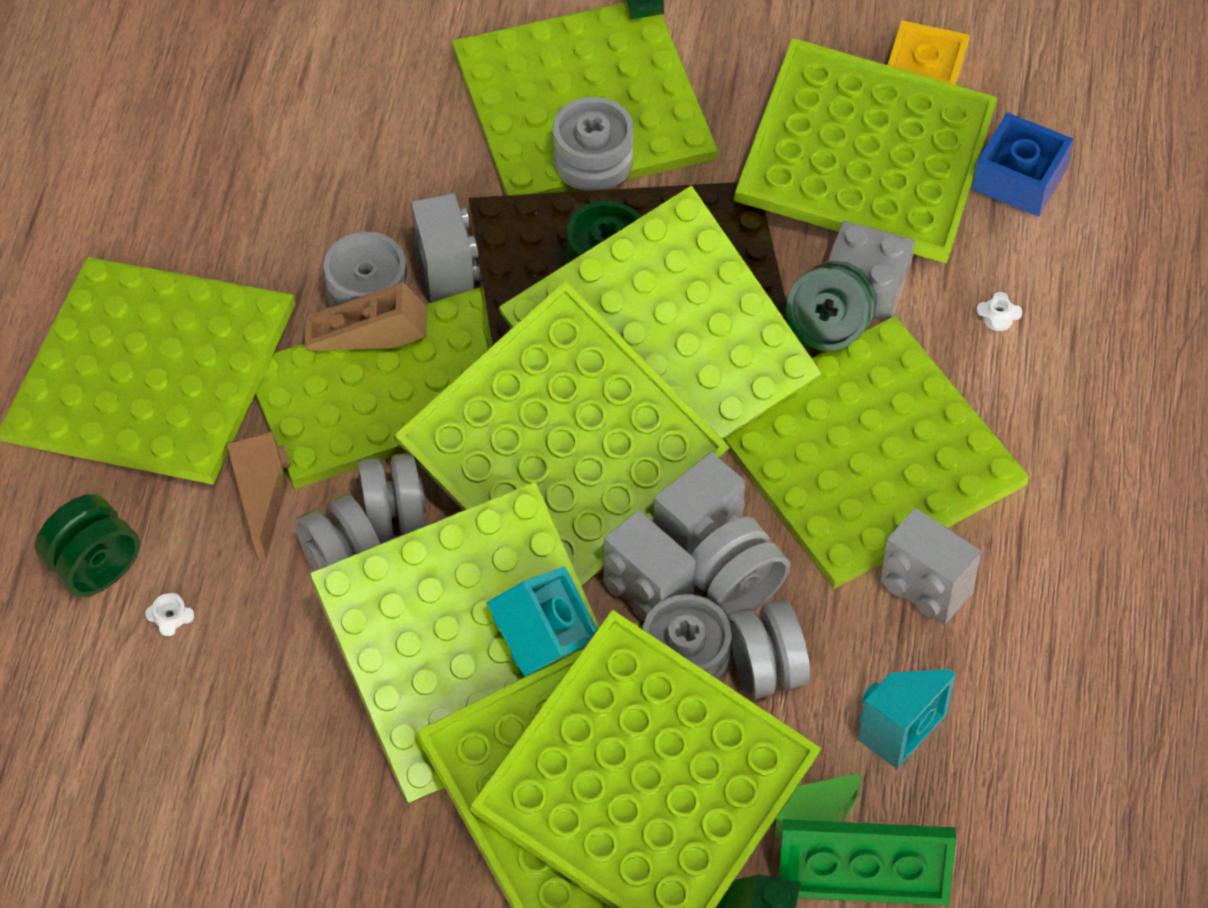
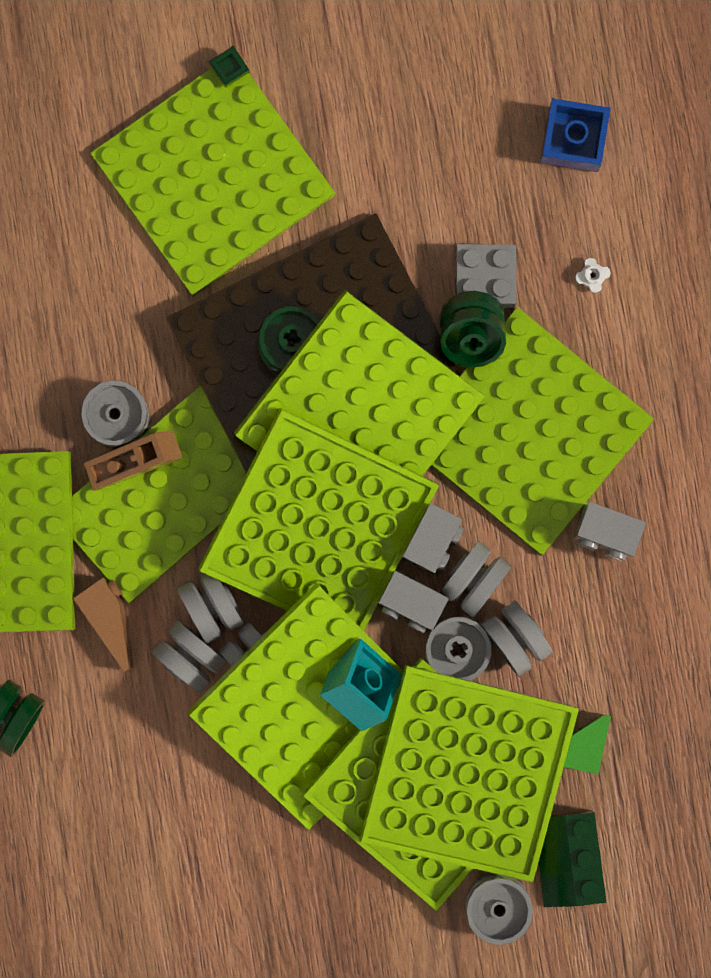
camera: 20 degrees left, 30 degrees up
(169, 604) = (84, 731): white plate -> none
(444, 246) = (163, 370): light grey brick -> none
(593, 143) = (238, 219): light grey wheel -> none
(866, 148) = (451, 158): lime plate -> none
(868, 861) = (633, 778): green plate -> none
(904, 712) = (624, 657): teal slope -> none
(929, 51) = (469, 44): yellow plate -> none

